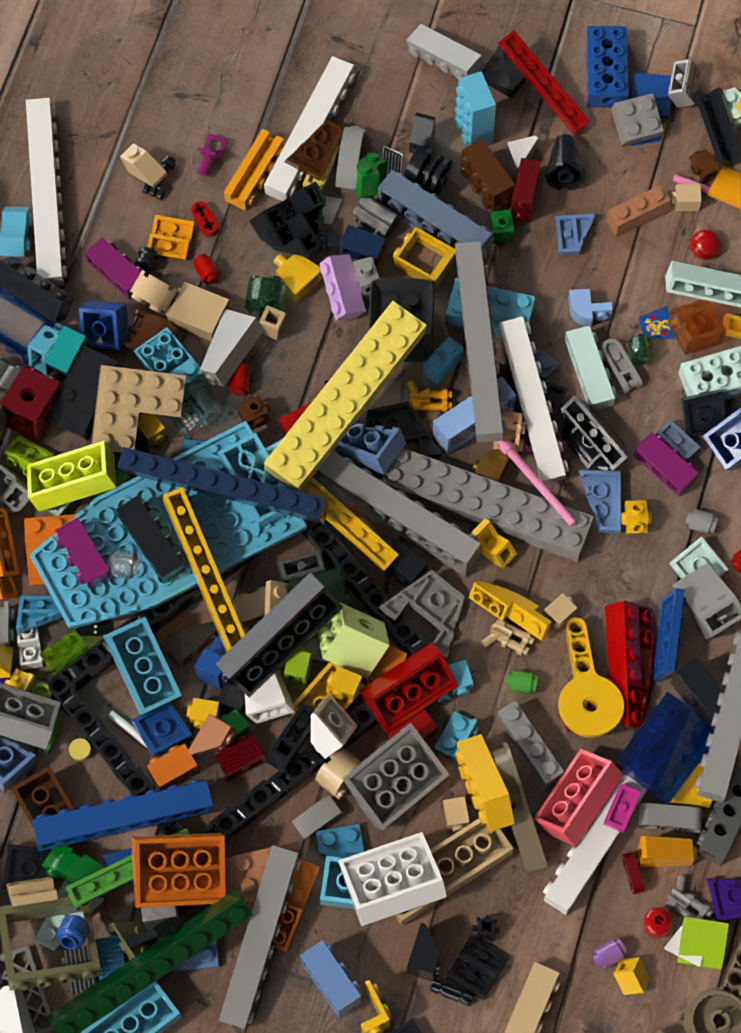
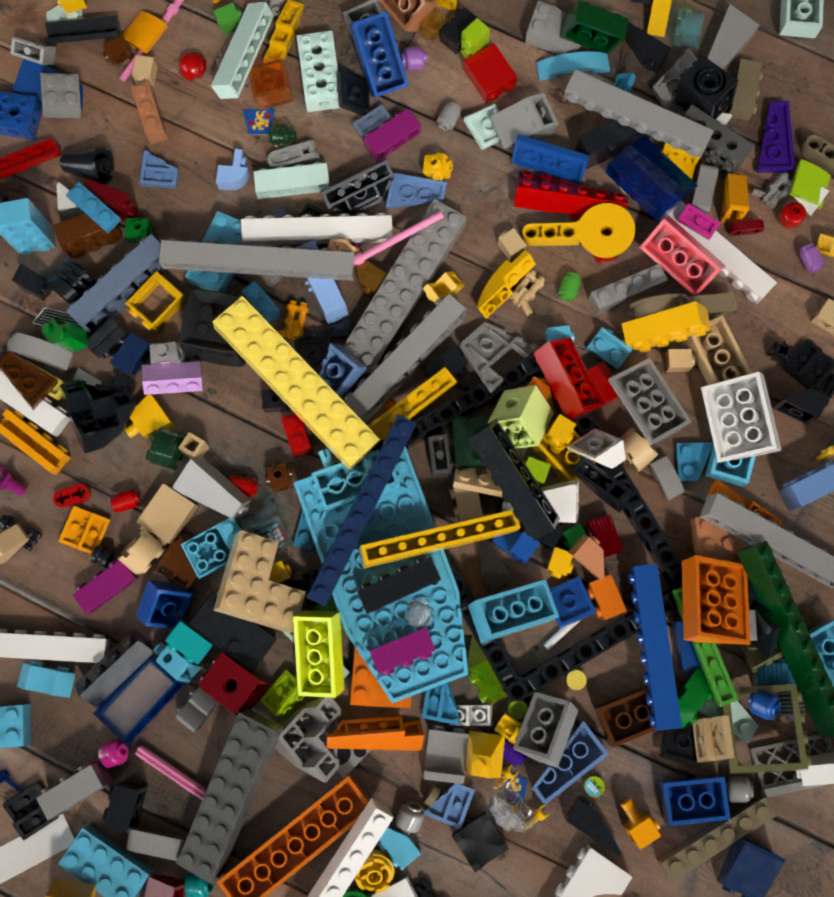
camera: 80 degrees left, 10 degrees up
(508, 172) = (93, 207): none -> dark azure plate

